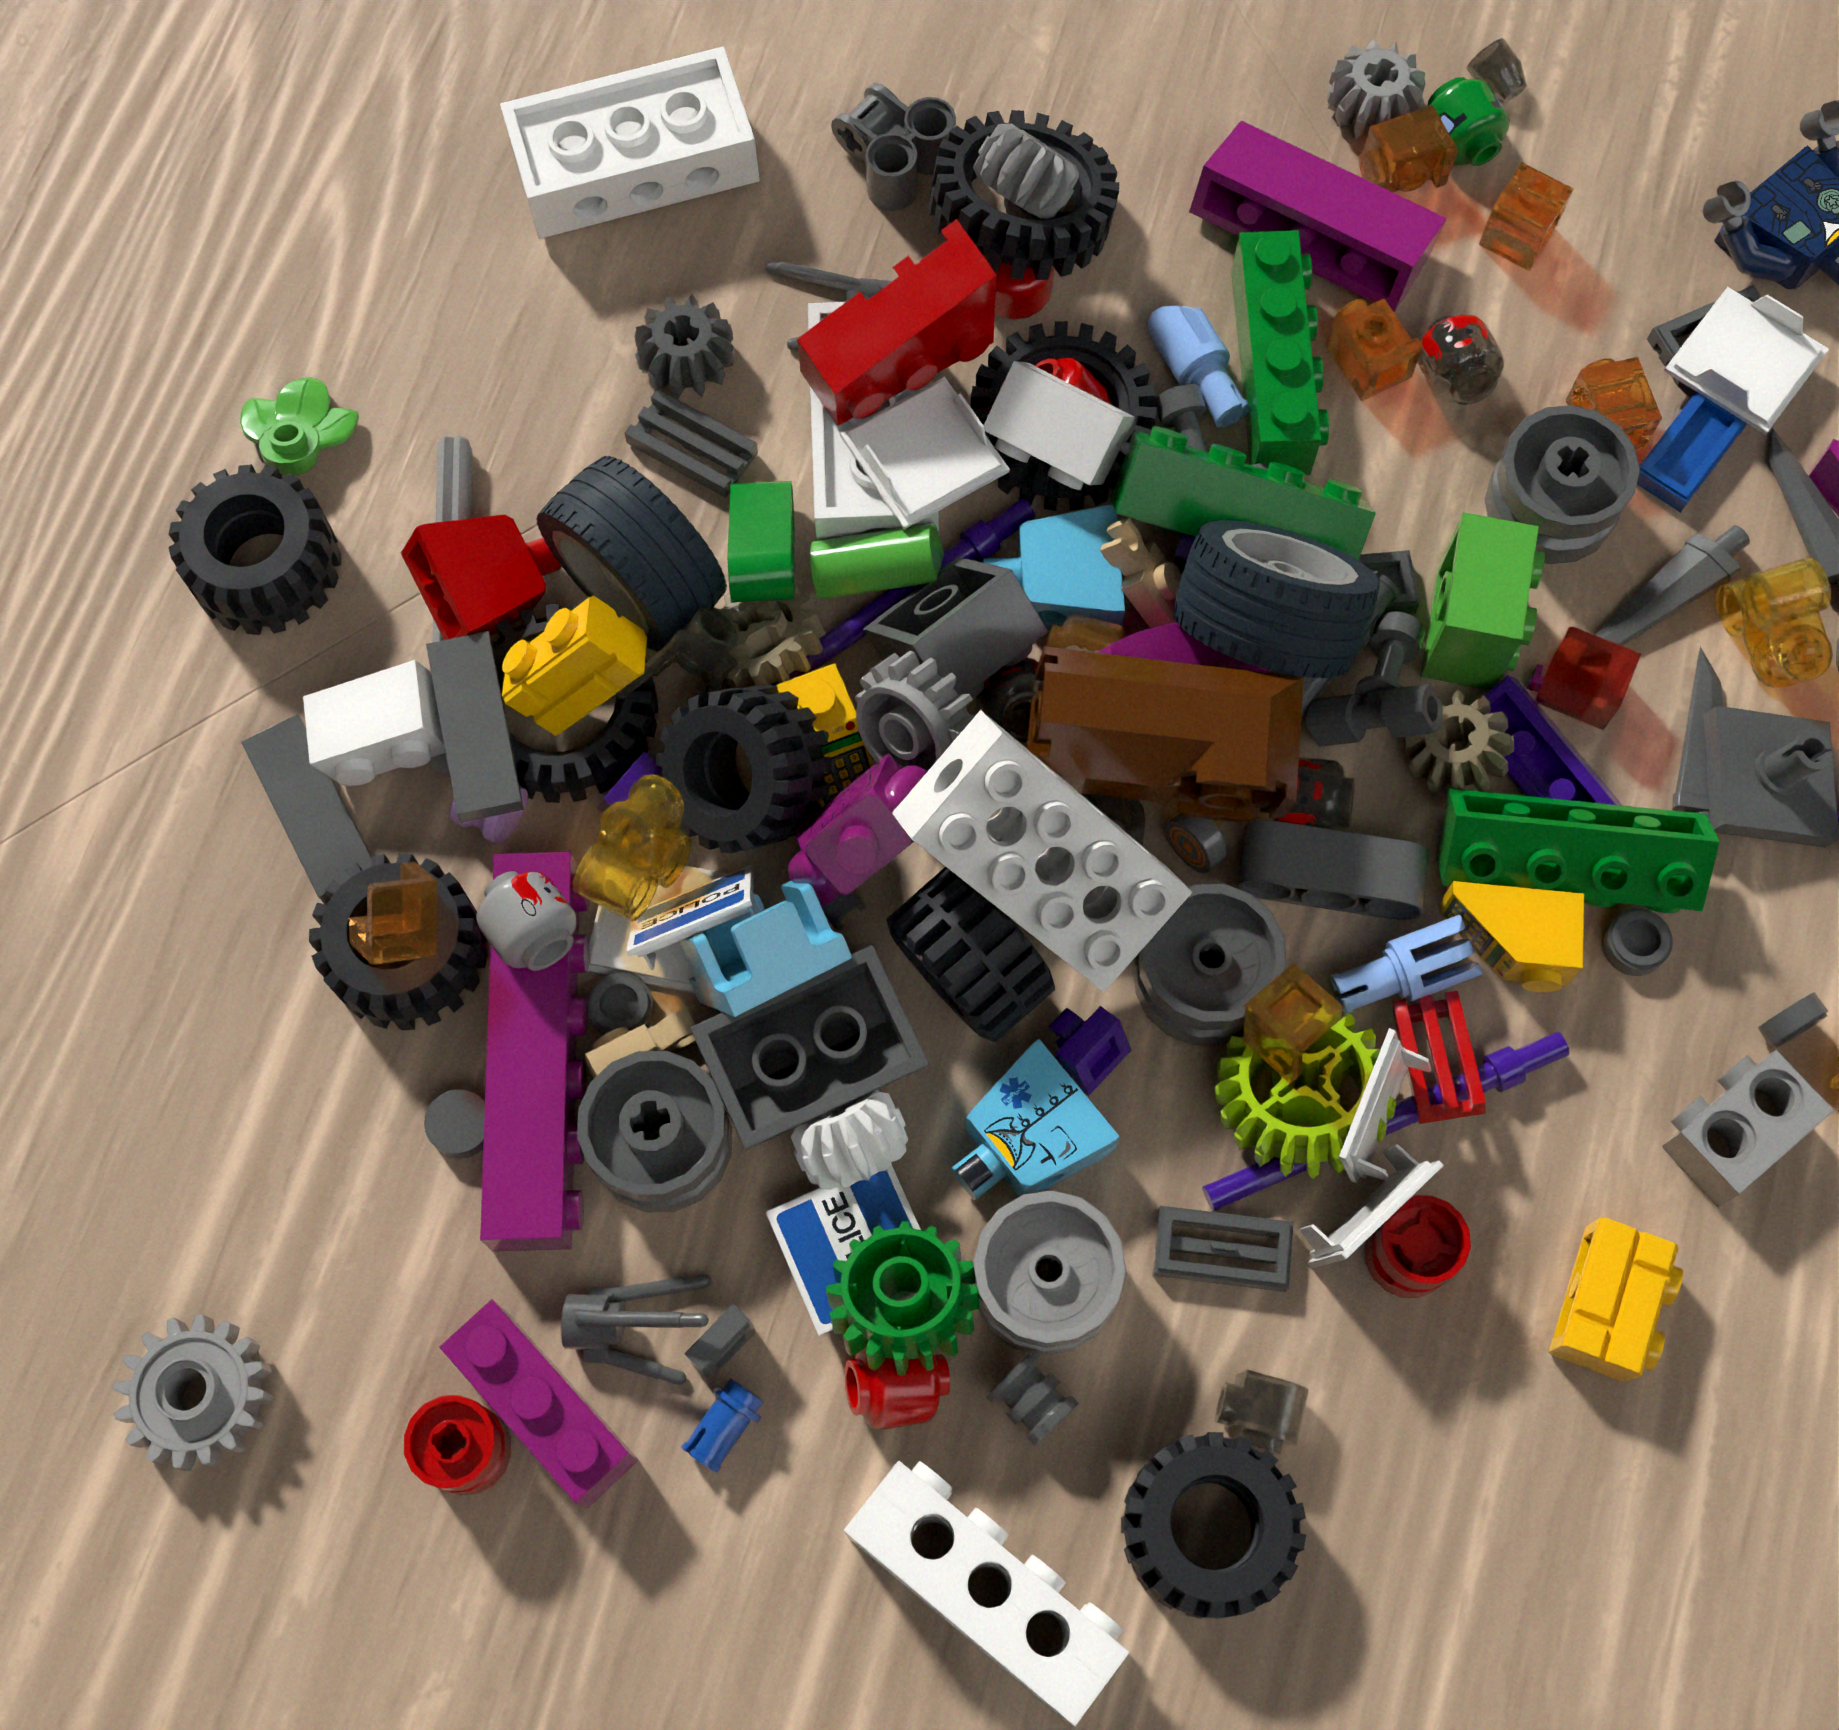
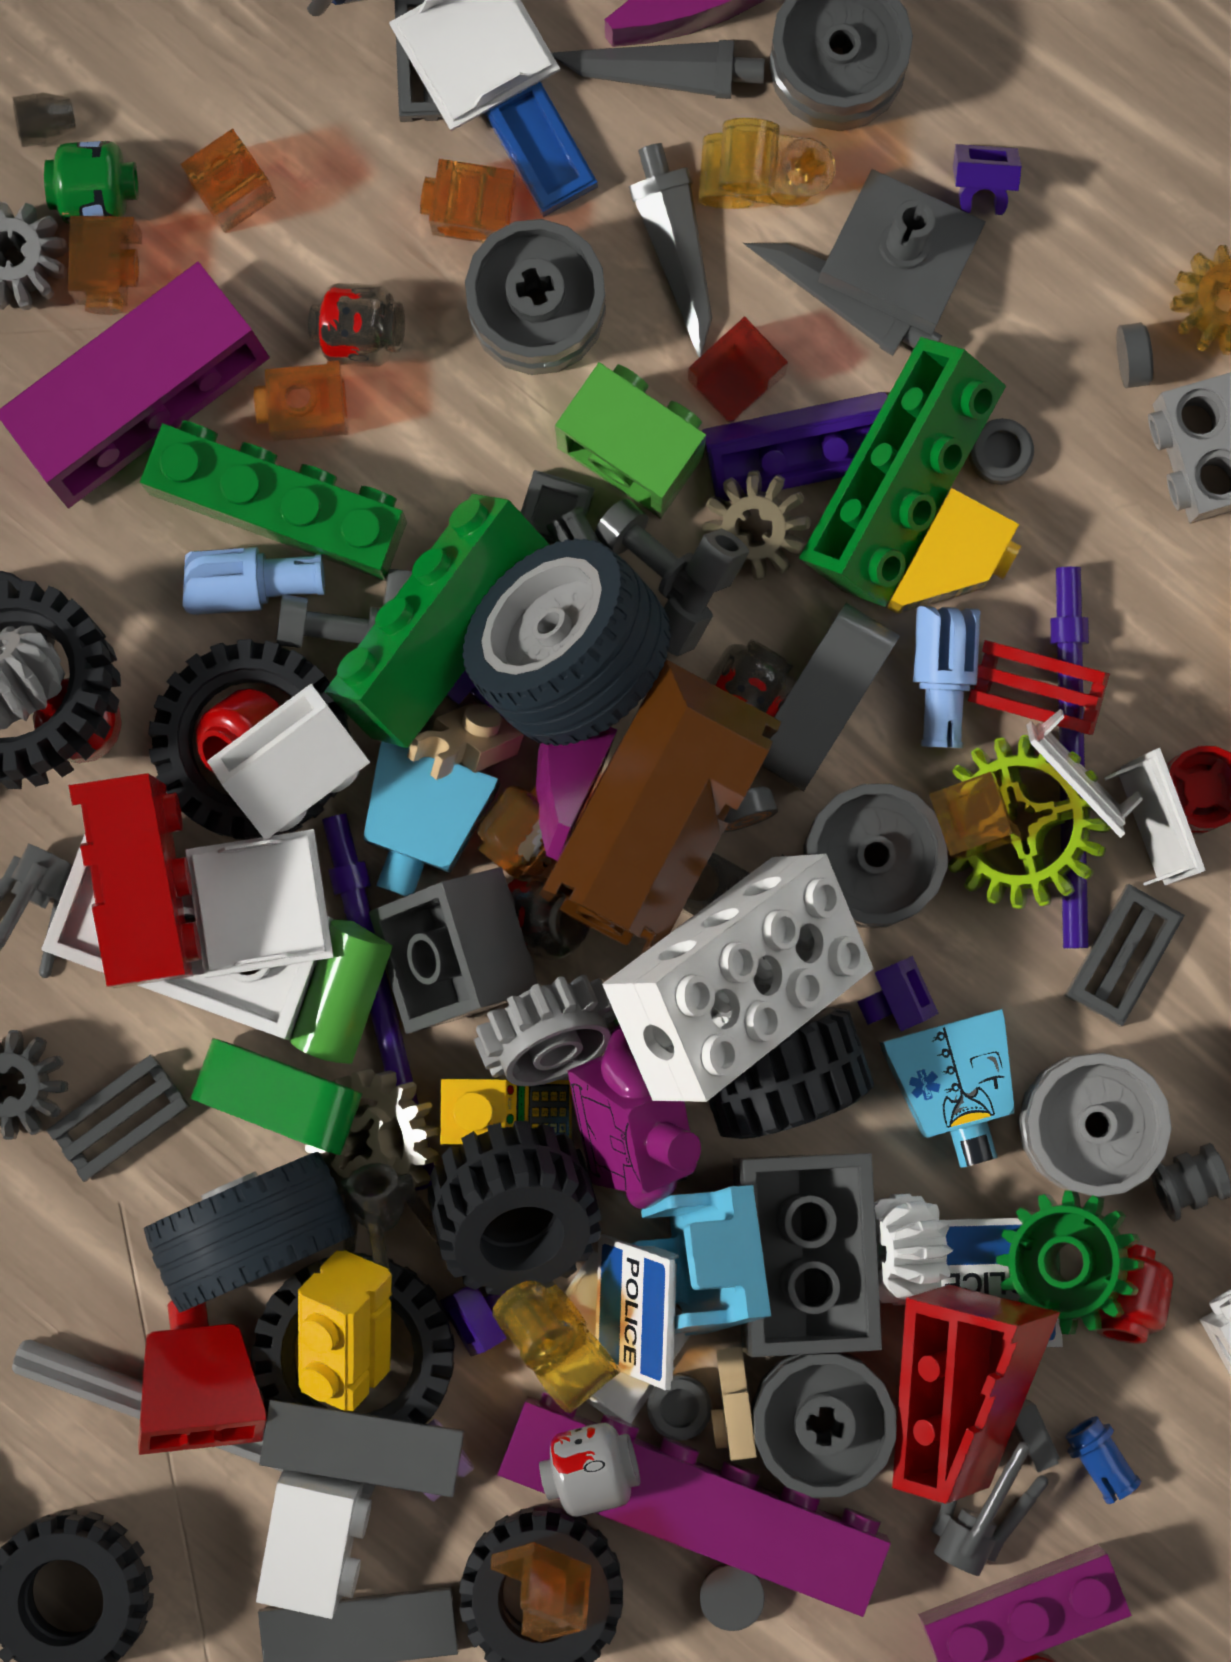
camera: 65 degrees left, 15 degrees up
(737, 1239) = (962, 1387): none -> red wedge
(1537, 679) = (713, 414): magenta piece -> none

